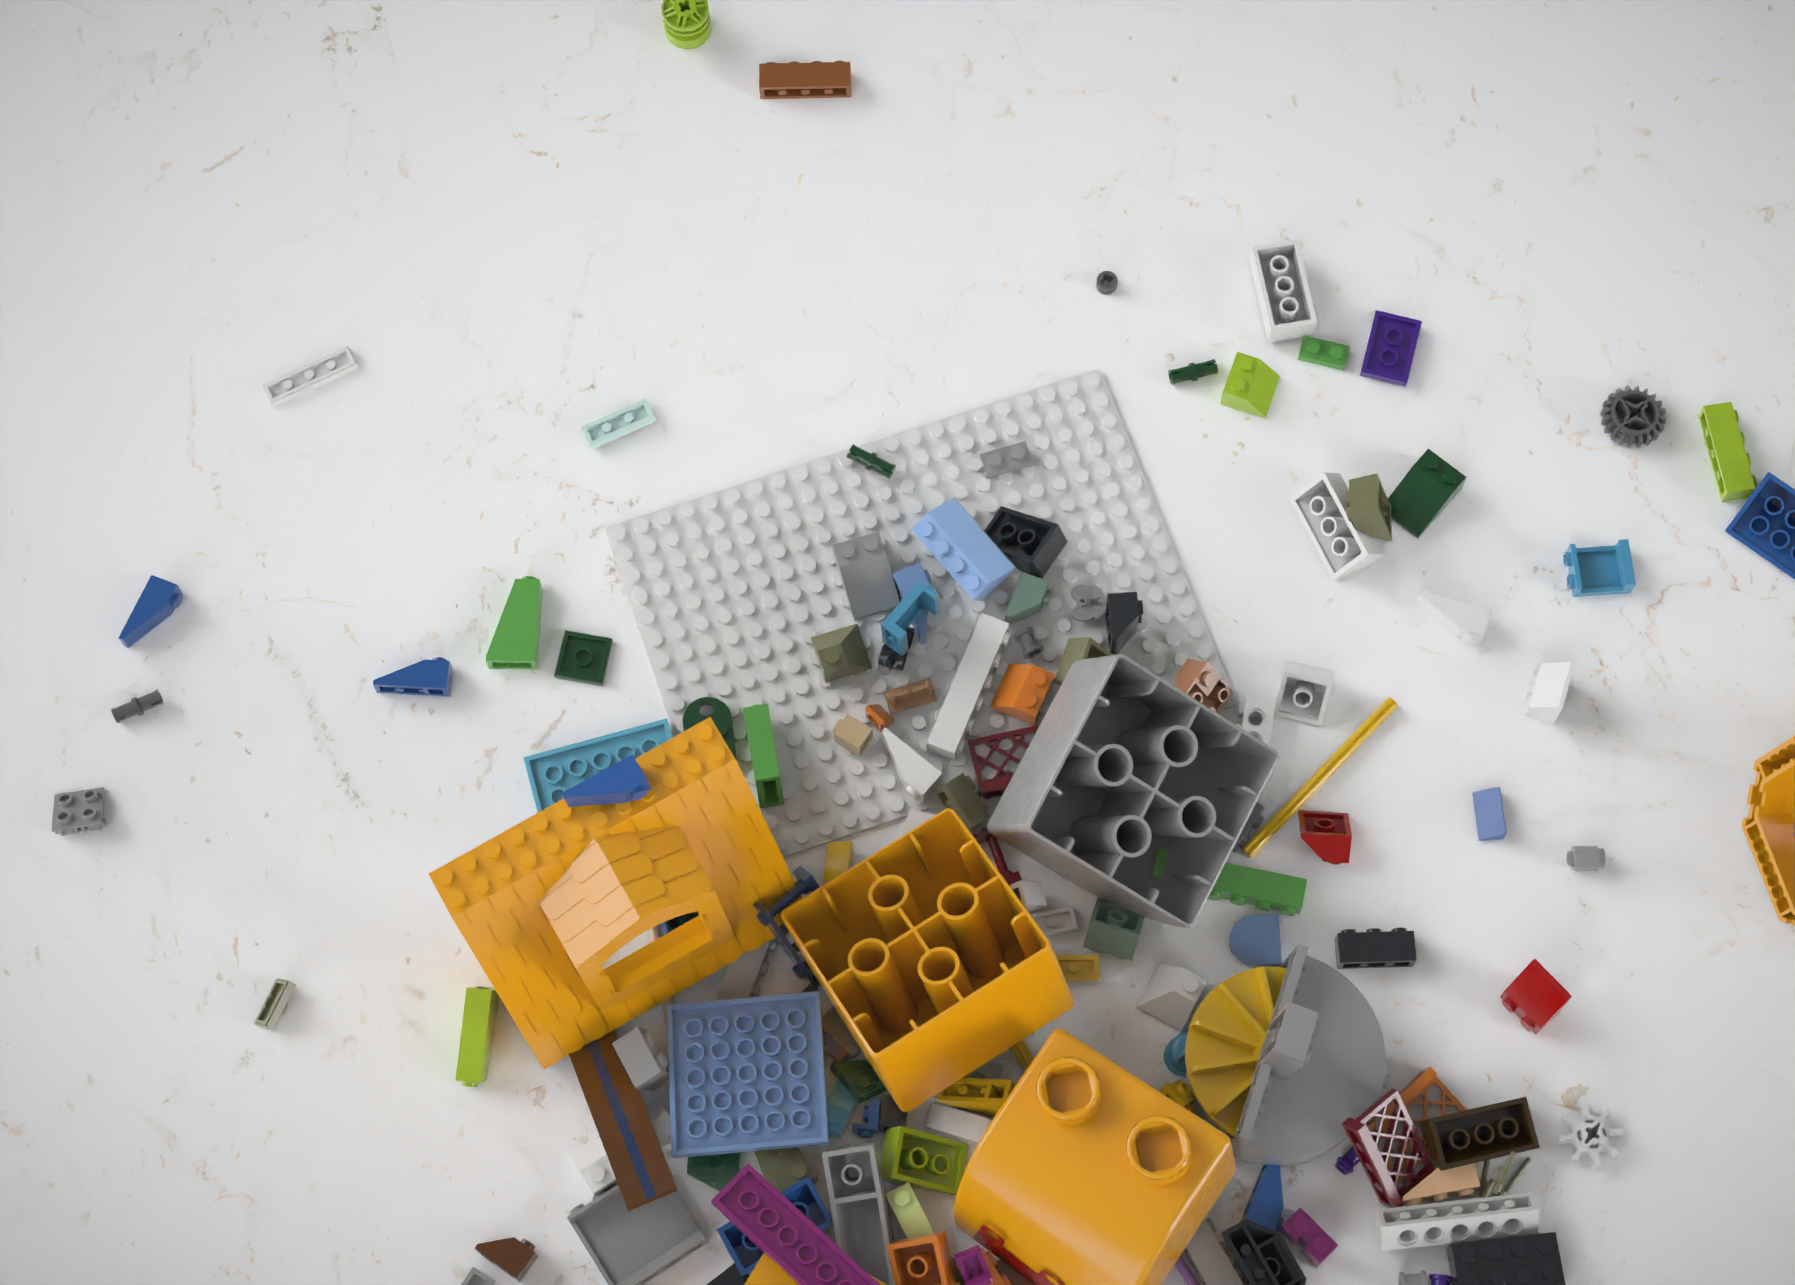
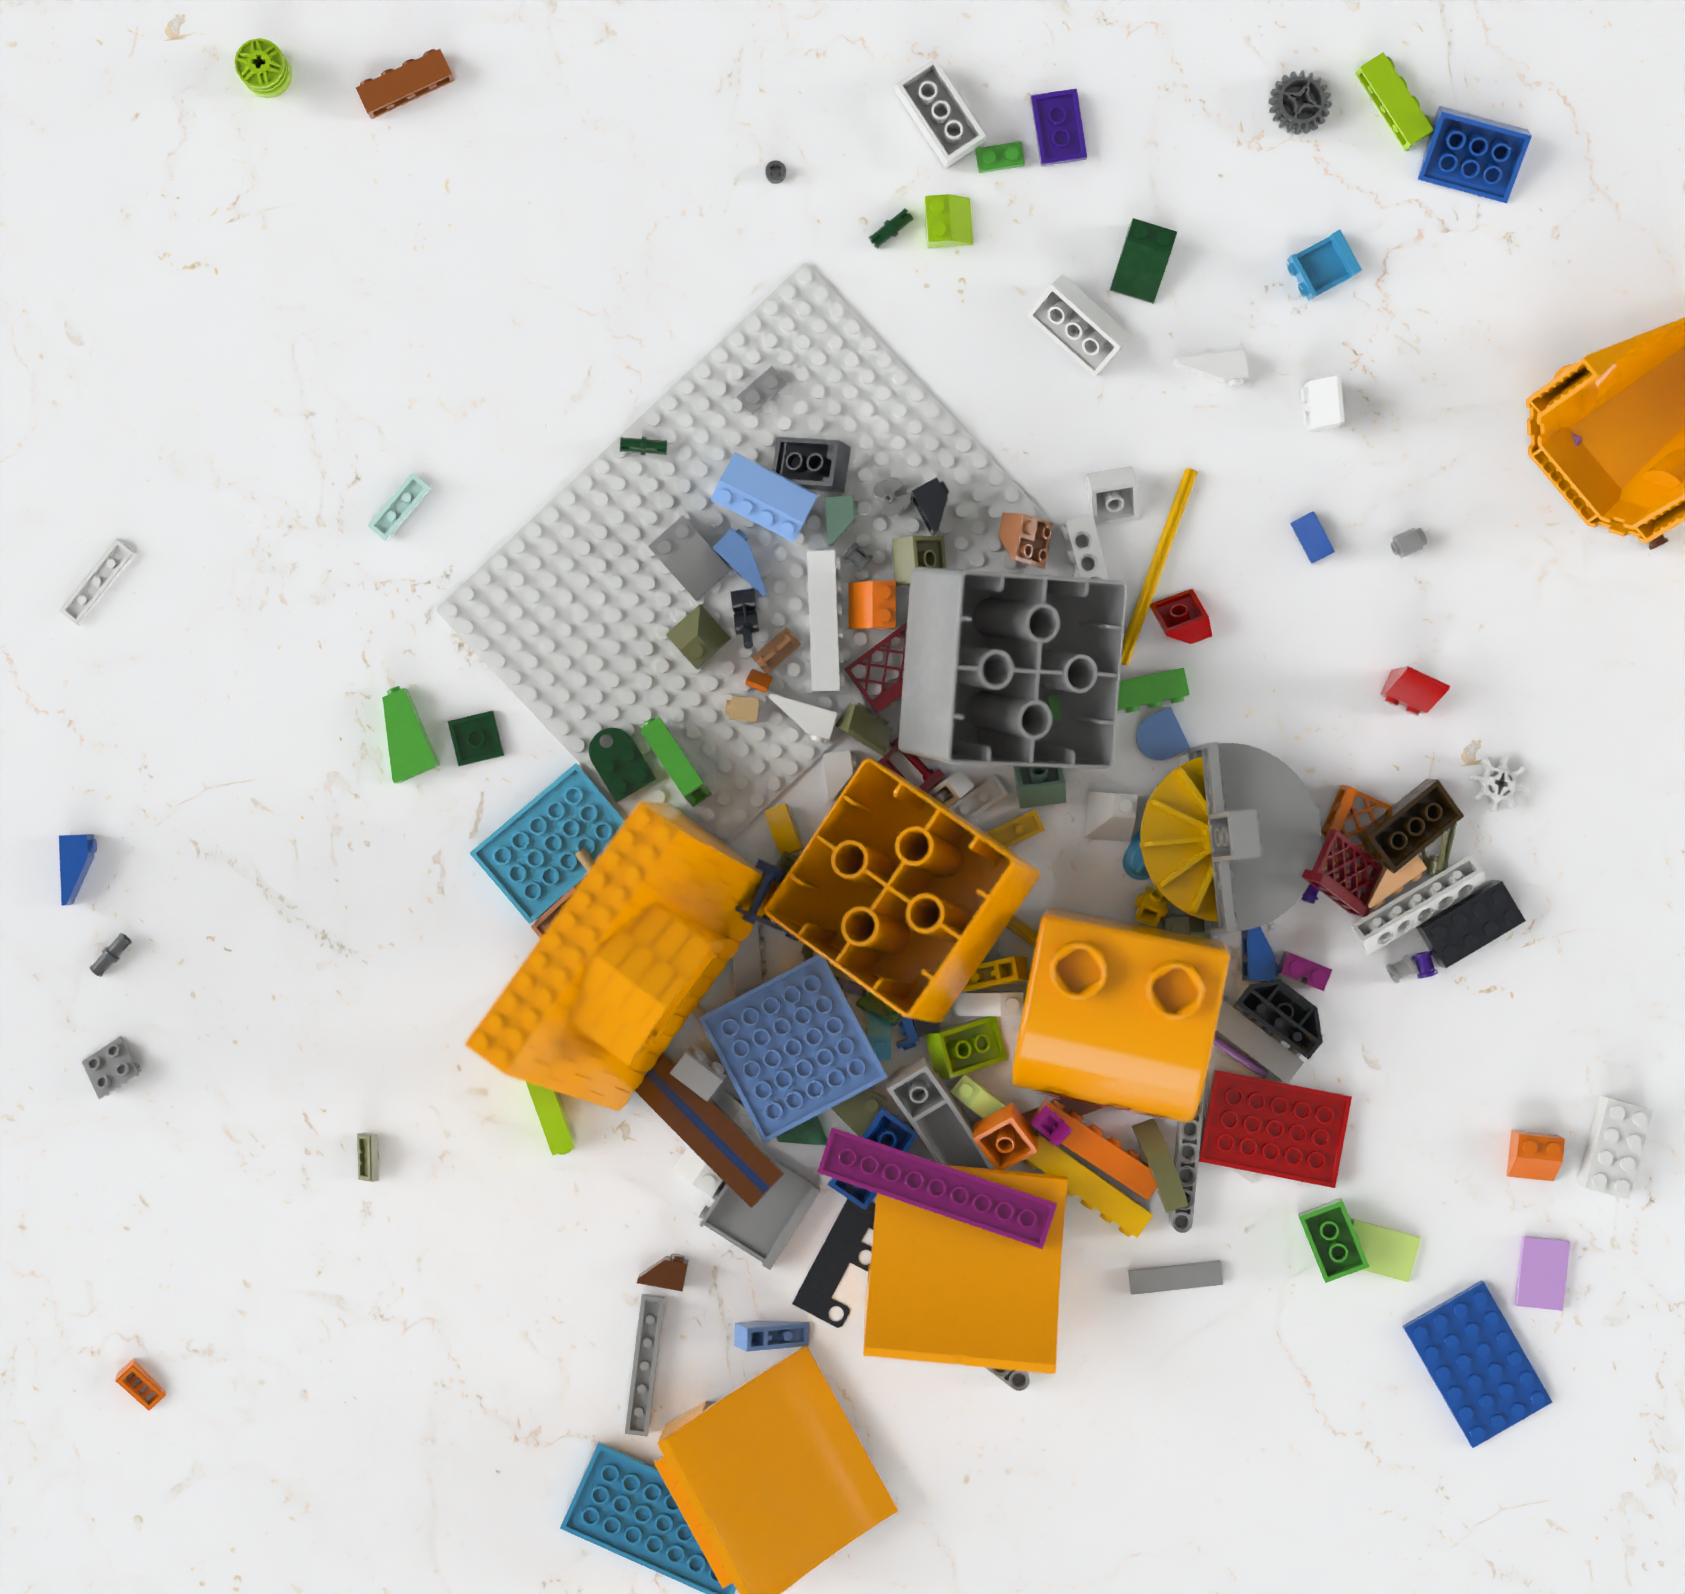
camera: 25 degrees left, 20 degrees up
(422, 678) = (346, 820): blue slope -> none
(613, 785) = (591, 900): blue slope -> none
(916, 600) = (738, 607): dark azure panel -> none
(1369, 507) = (1104, 300): olive slope -> none
(1375, 948) = (1263, 700): black brick -> none

